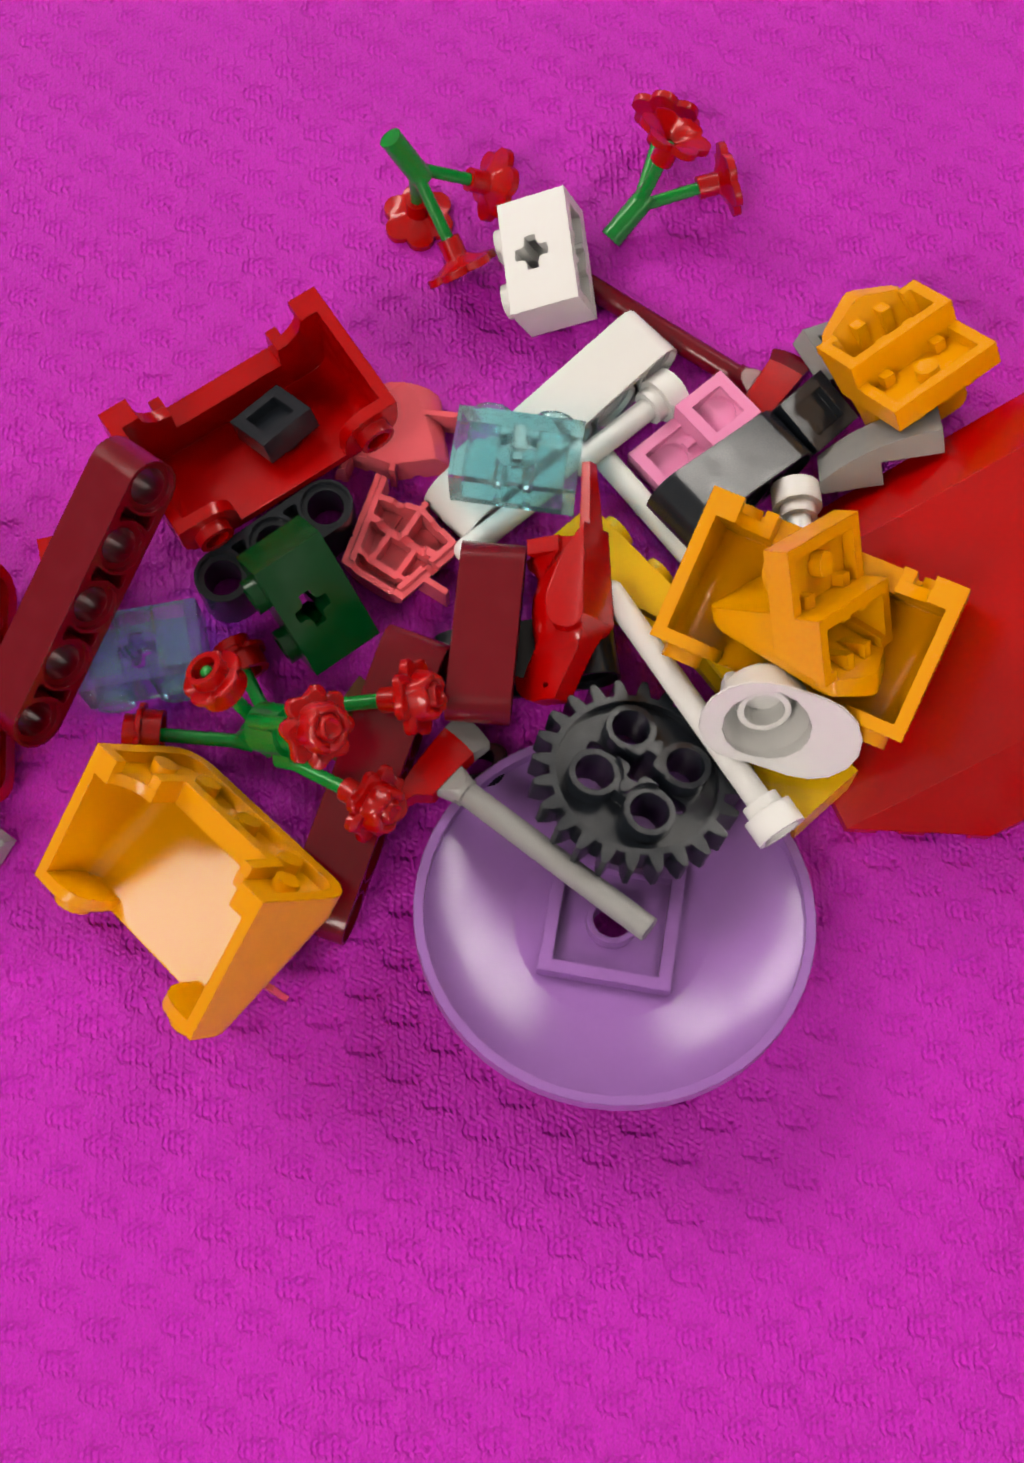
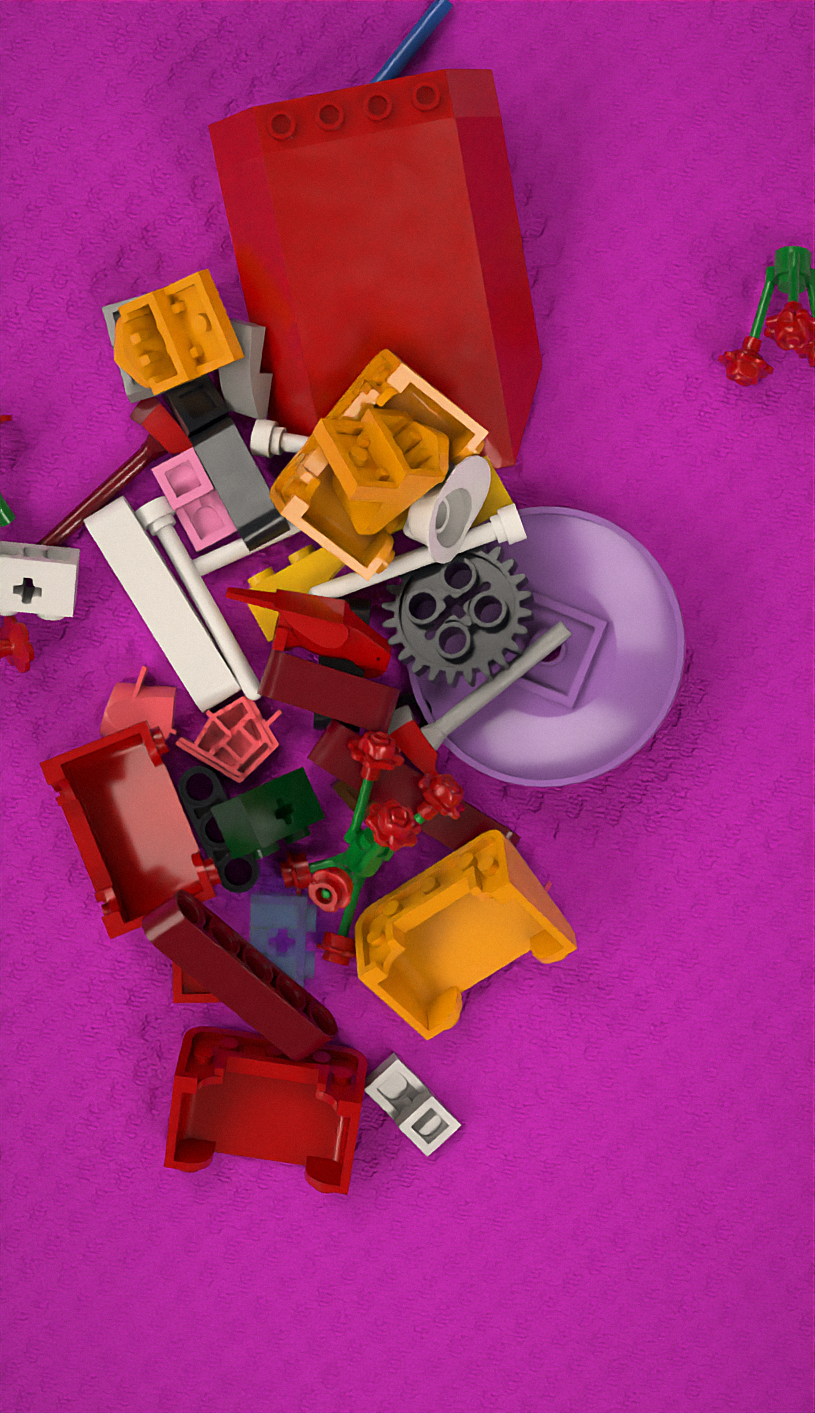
camera: 75 degrees left, 15 degrees up
(275, 423) = (126, 812): black plate -> none
(487, 473) = (204, 667): clear light blue brick -> none

